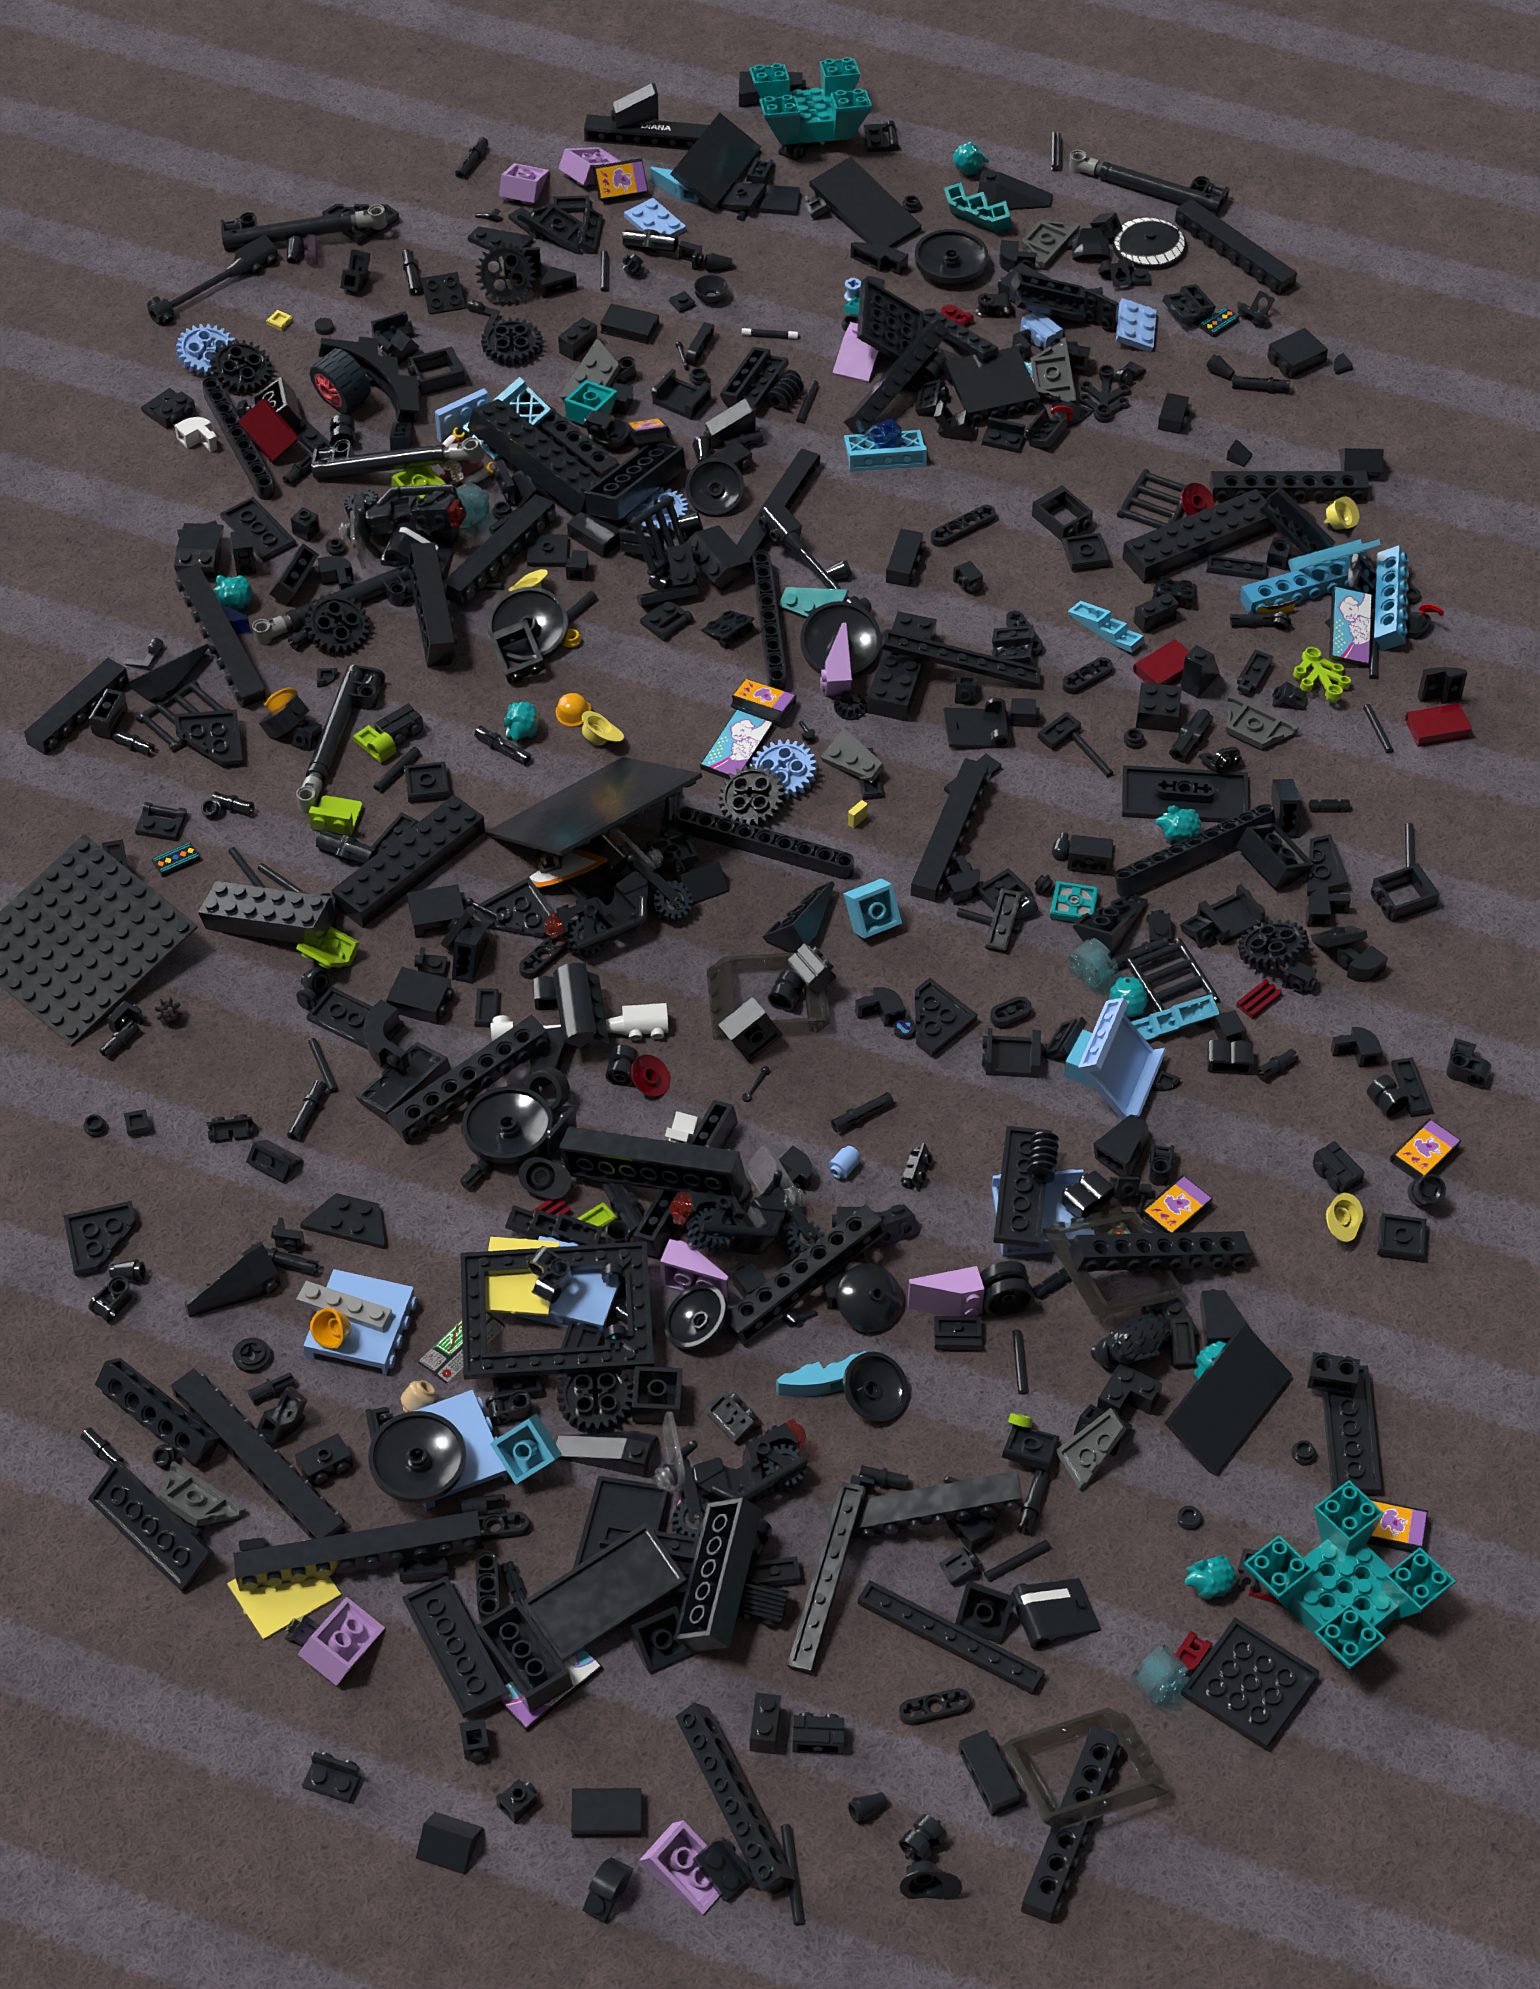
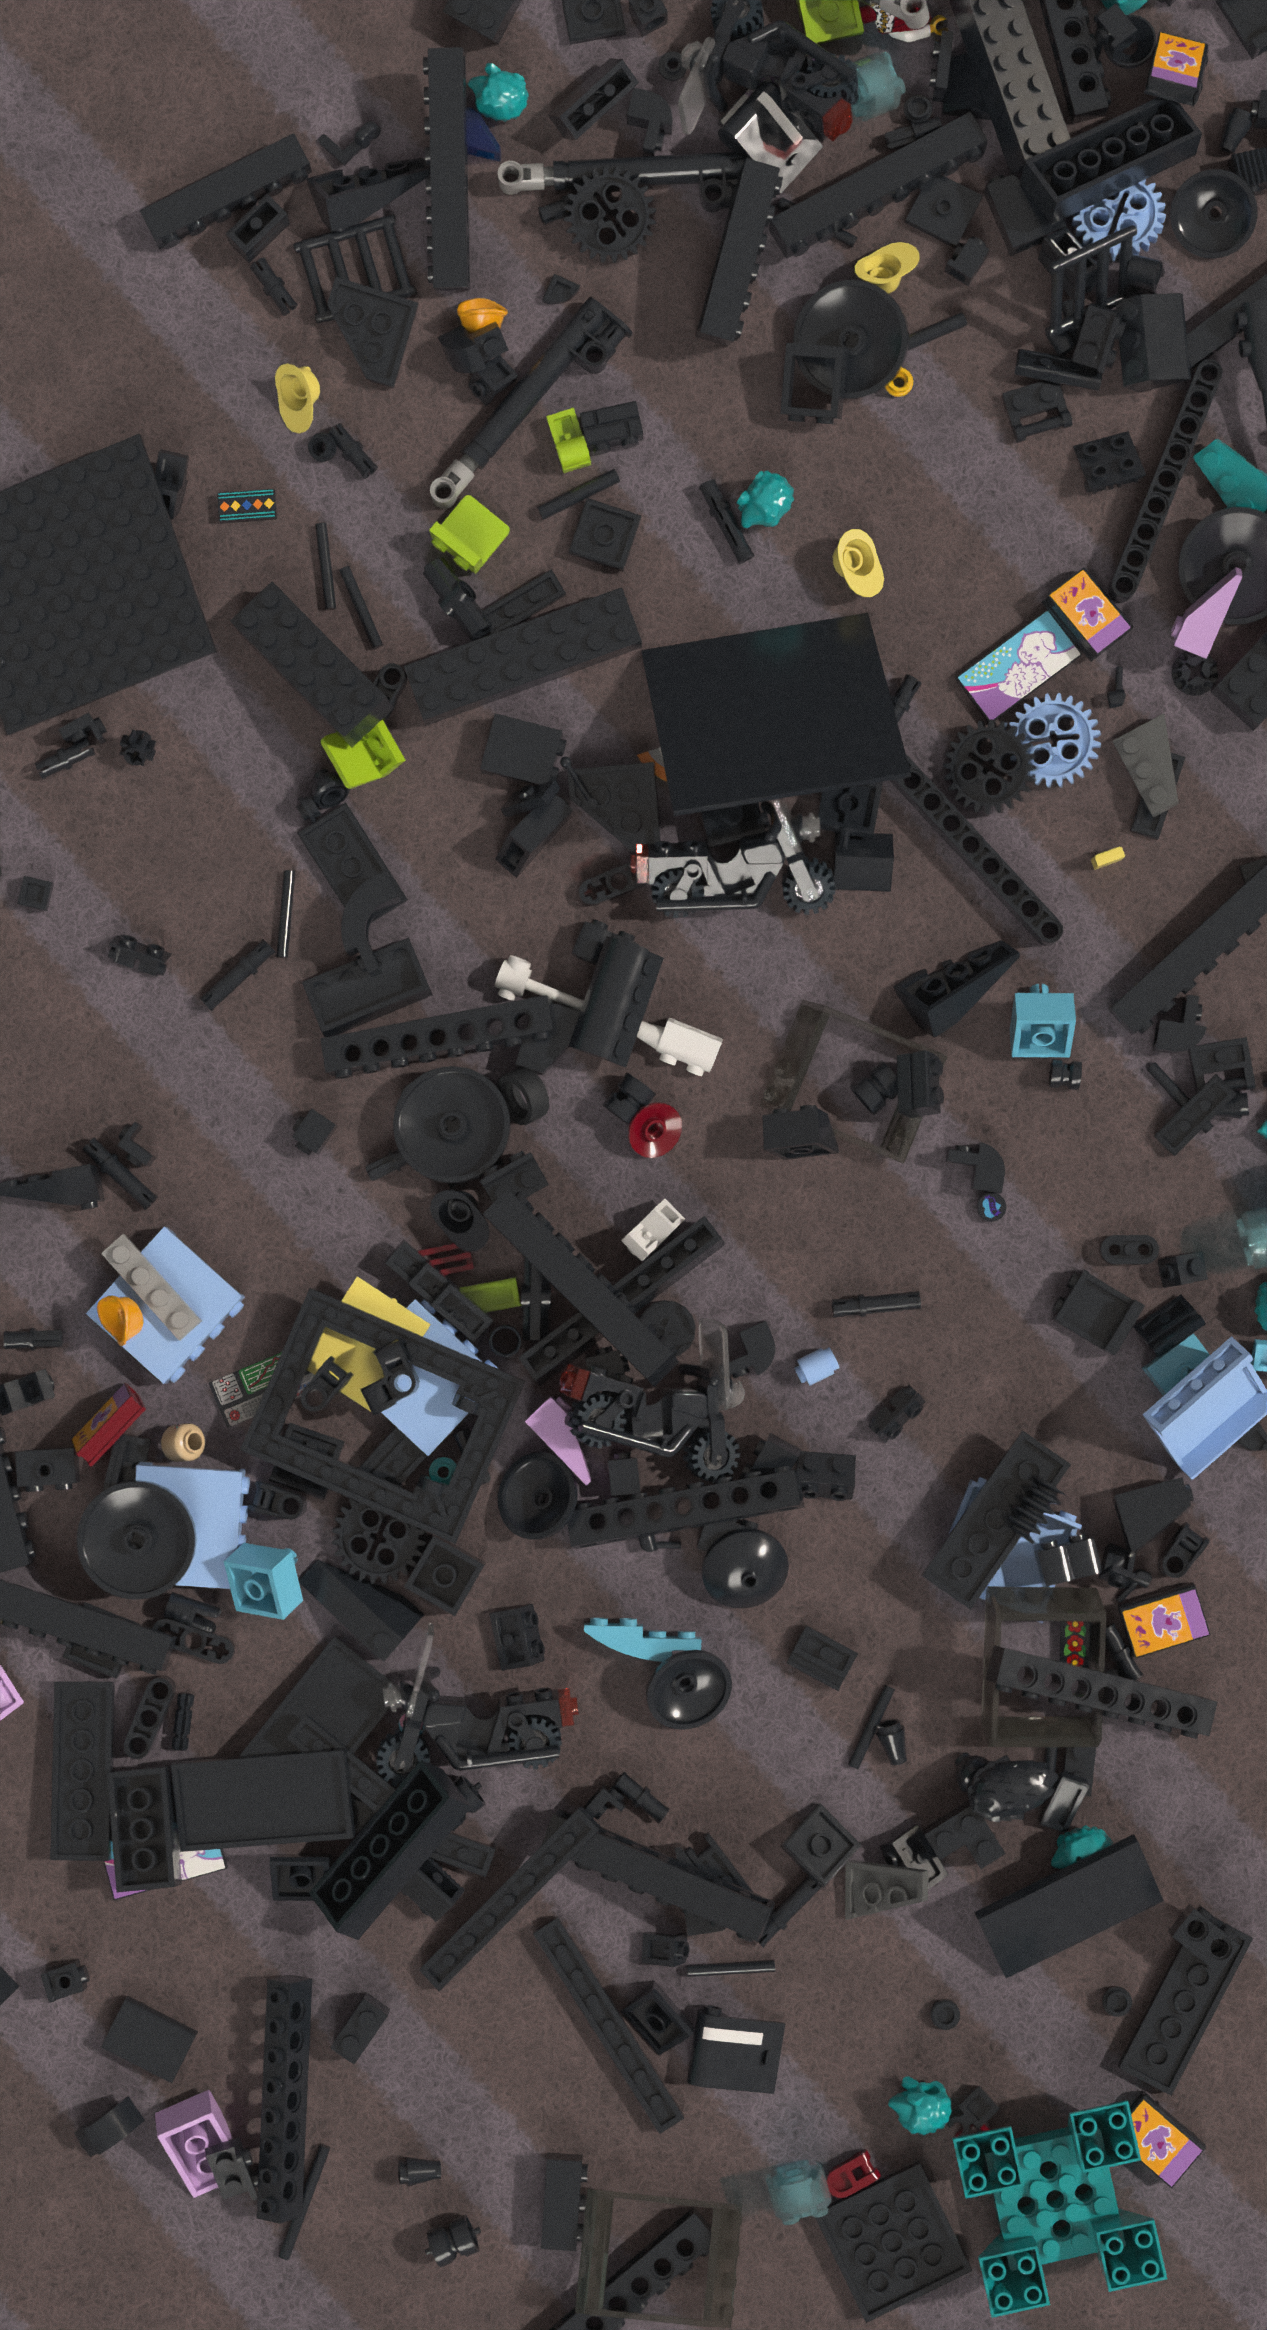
camera: 30 degrees right, 35 degrees up
(160, 827) = (247, 442): black plate -> none
(175, 779) = (296, 395): none -> light yellow piece
(241, 1353) = (19, 1291): black gear -> none
(243, 552) = (542, 30): black brick -> none
(272, 1159) = (170, 1024): black panel -> none
(348, 1220) = (218, 1153): black wing -> none
(356, 1406) = (108, 1424): none -> dark red piece
(411, 1175) = (313, 1132): none -> black brick
(420, 995) = (442, 873): black brick -> none
(430, 963) = (479, 828): black bracket -> none
(472, 1733) = (43, 1899): black brick -> none
(486, 1006) = (515, 925): black tile -> none
(504, 1298) = (326, 1384): none -> black piece
(570, 709) = (842, 507): light orange helmet -> none
(747, 1096) = (755, 1209): black hinge -> none
(818, 1733) = (410, 2066): black brick -> none
(905, 935) = (1065, 1074): none -> black wheel
(928, 1881) = (434, 2282): black piece -> none
(939, 1017) = (1039, 1213): black plate -> none
(939, 1697) = (553, 2105): black beam -> none
(948, 1293) = (845, 1618): lavender slope -> none
(1006, 1288) = (901, 1640): black wheel -> none
(1020, 1420) = (828, 1806): lime tile -> none
(1039, 1360) = (892, 1738): none -> black cone
(1051, 1283) = (960, 1645): black axle -> none
(1052, 1006) = (1182, 1269): none -> black bracket
(1219, 1316) = (1124, 1798): black slope -> none

